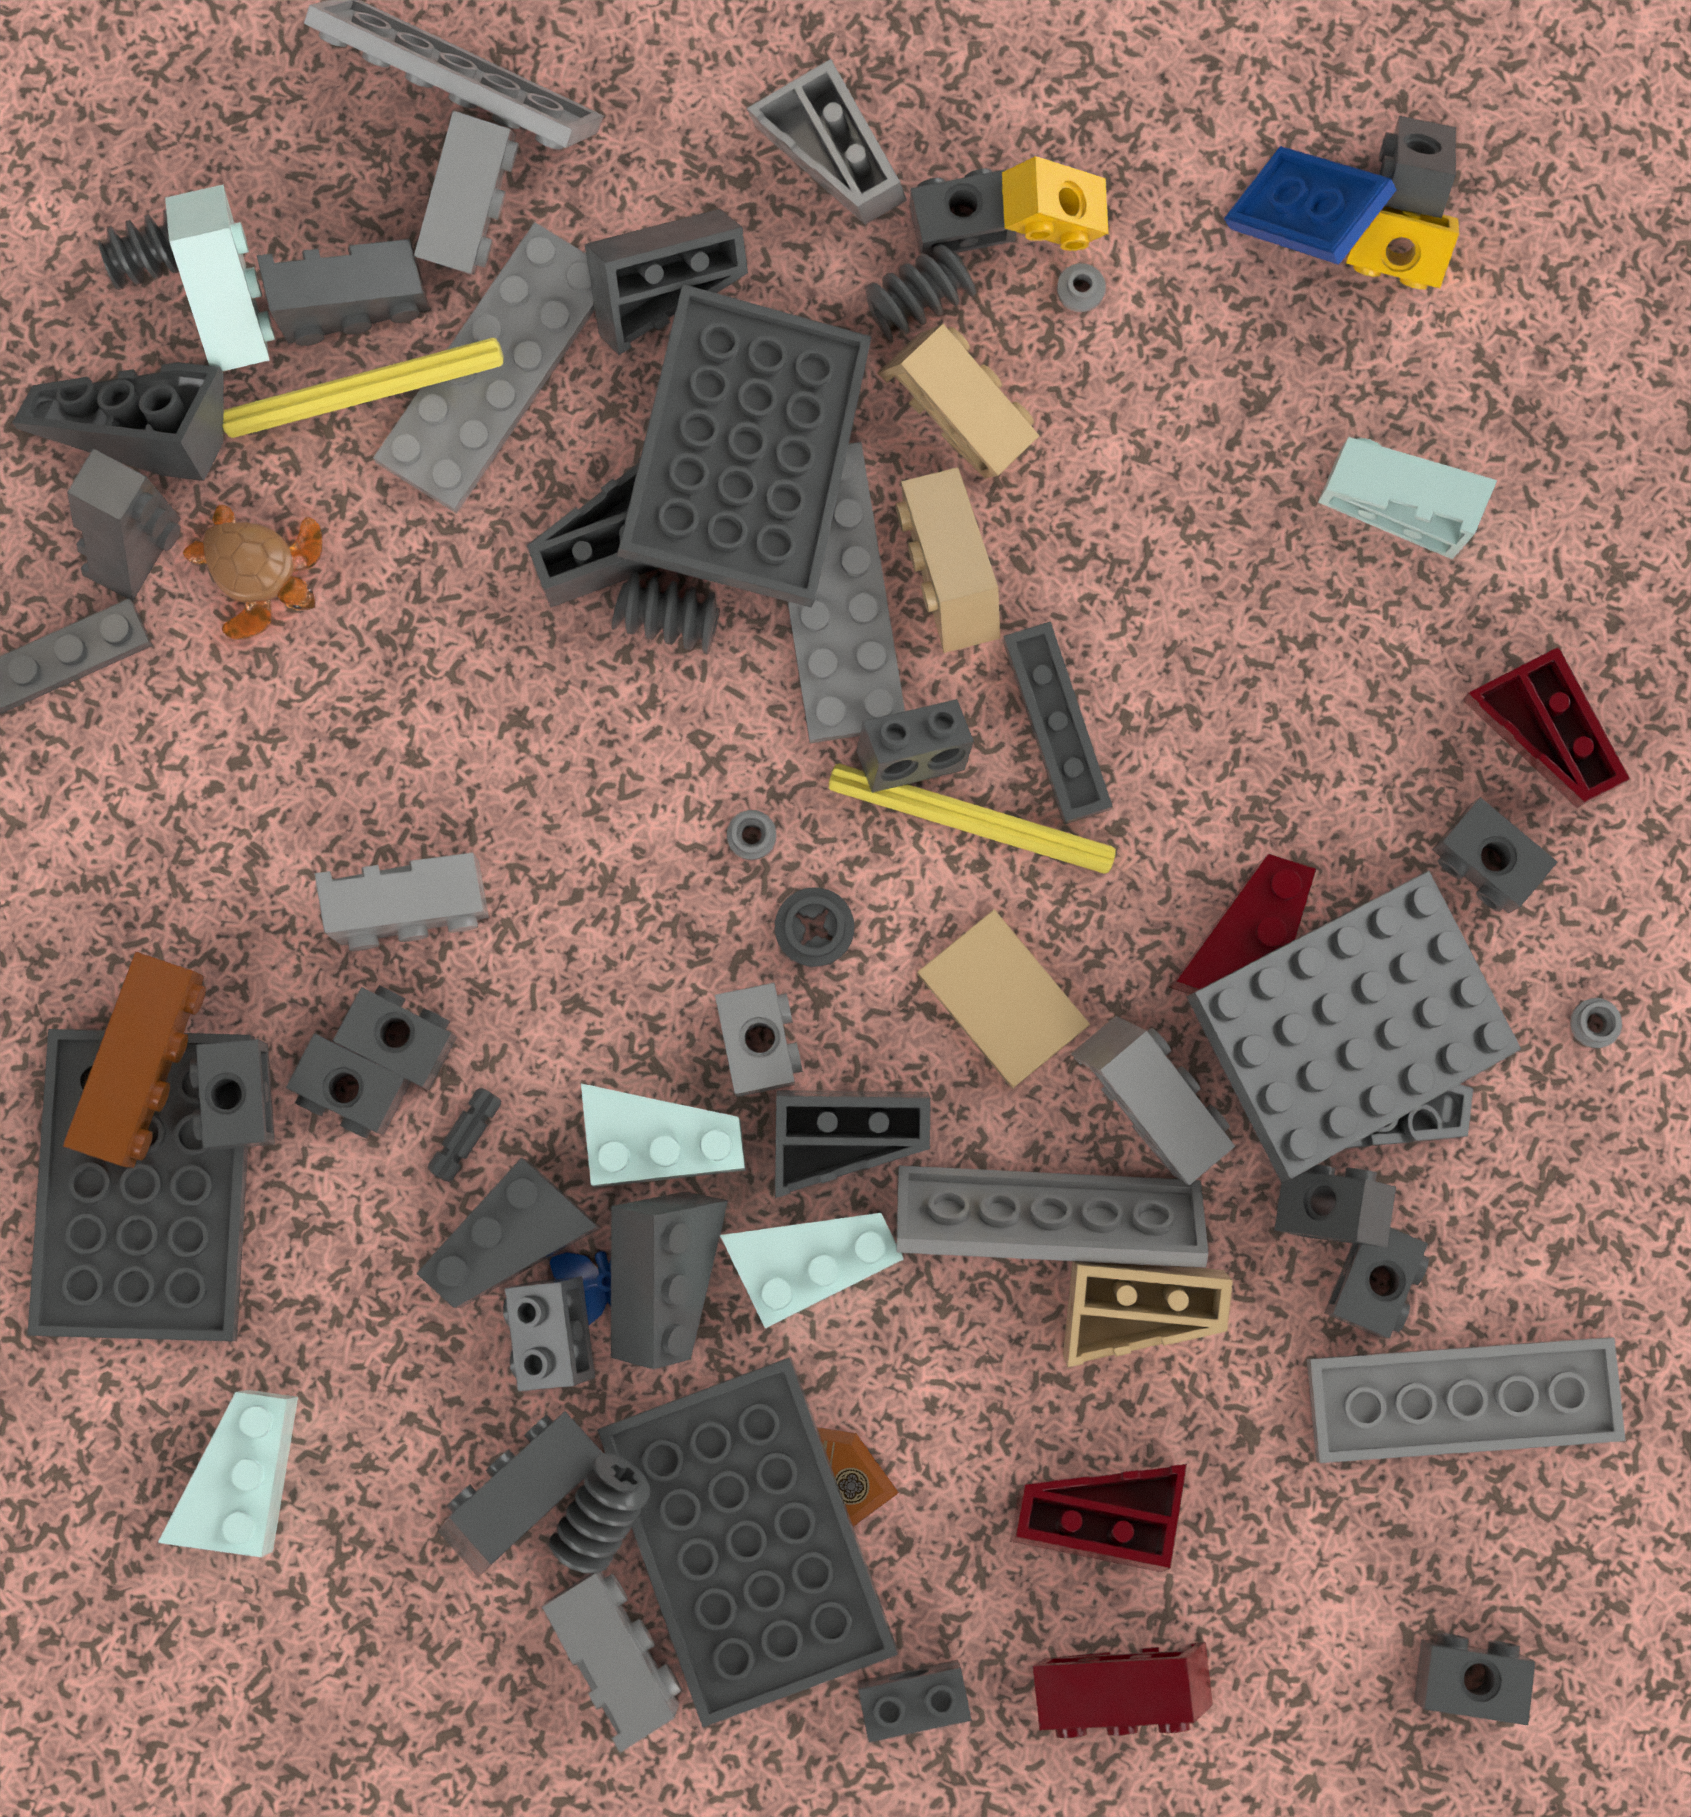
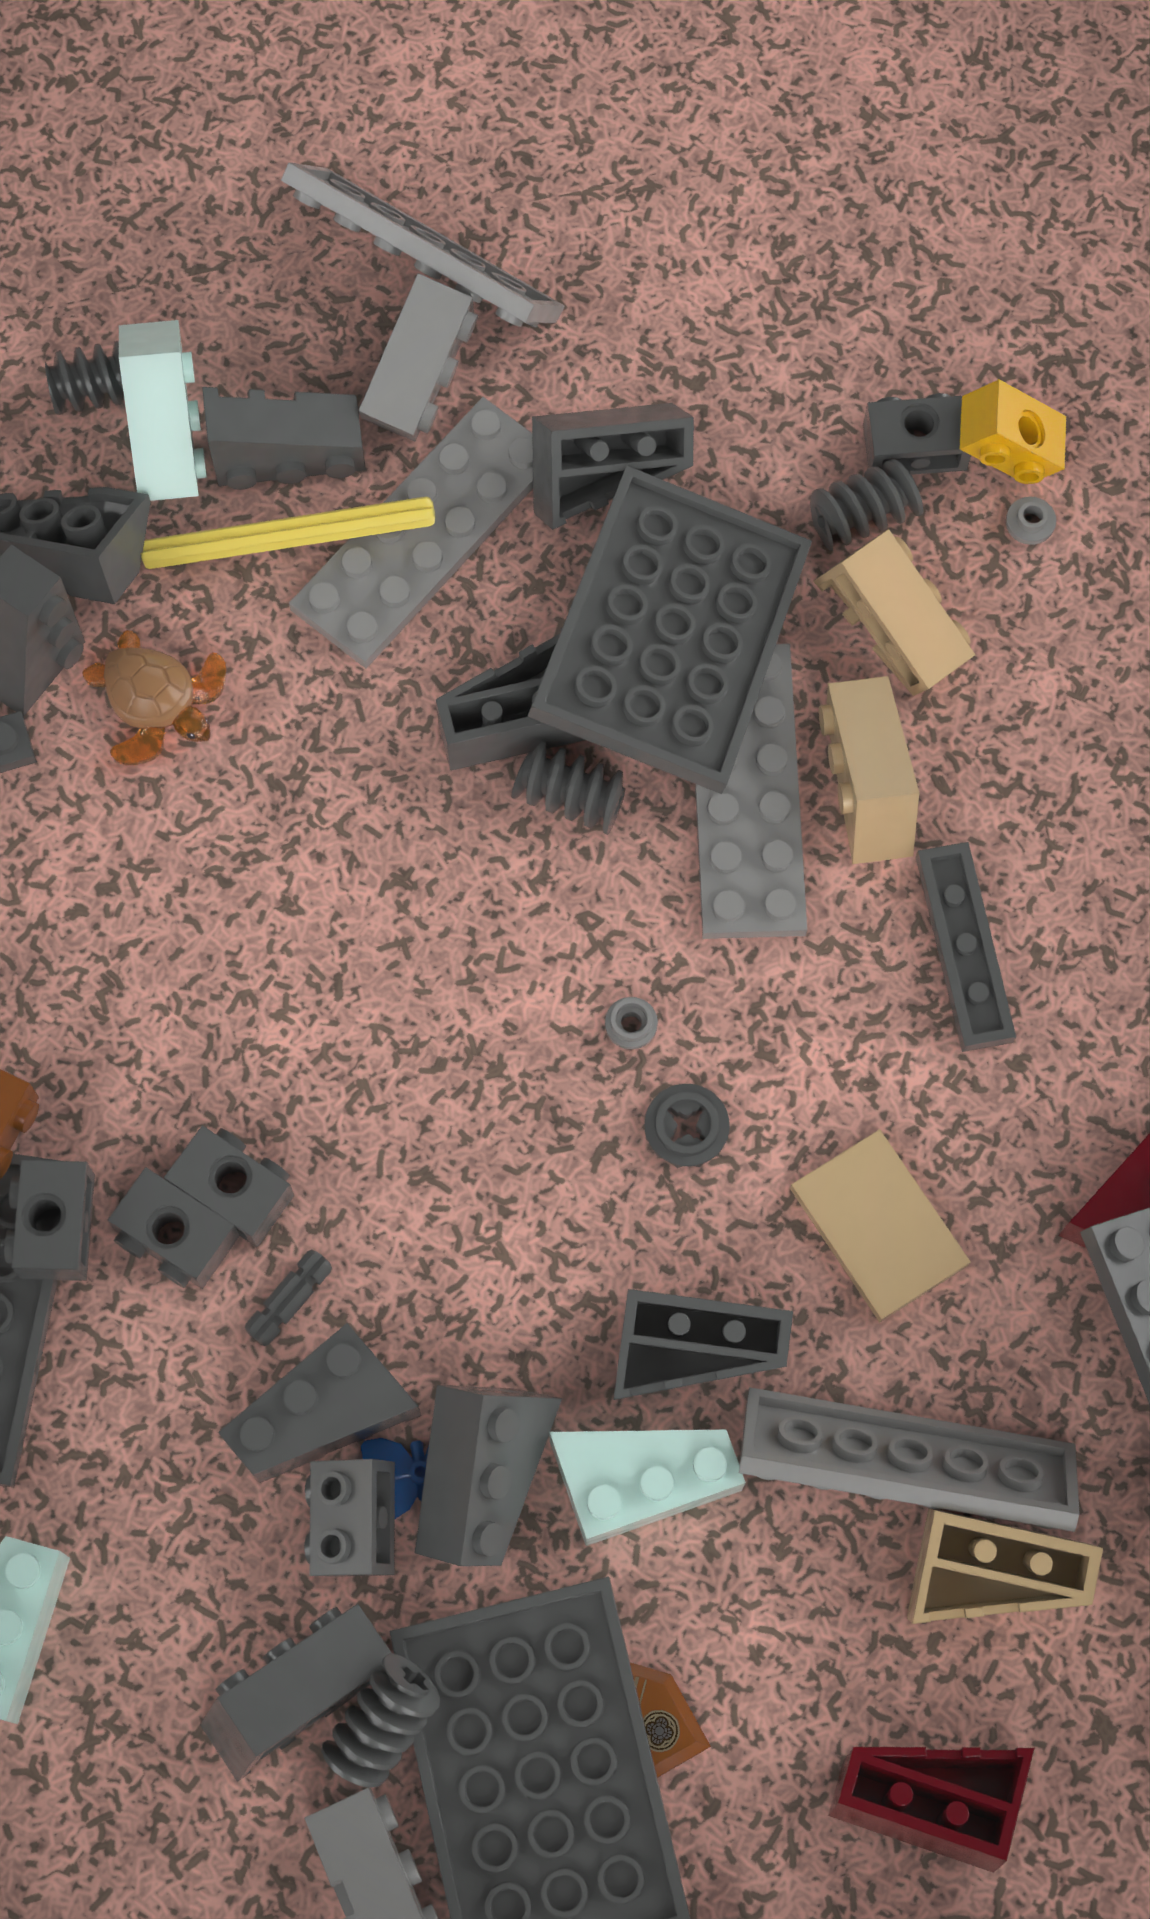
camera: 10 degrees right, 10 degrees down
(402, 901) = (257, 1043): light grey wedge -> none
(656, 1139) = (493, 1325): light aqua wedge -> none
(740, 1013) = (609, 1201): light grey brick -> none
(831, 141) = (791, 351): light grey wedge -> none
(914, 745) = (813, 948): dark grey brick -> none
(977, 820) = (866, 1034): light yellow axle -> none
(1156, 1097) = (1037, 1347): light grey wedge -> none

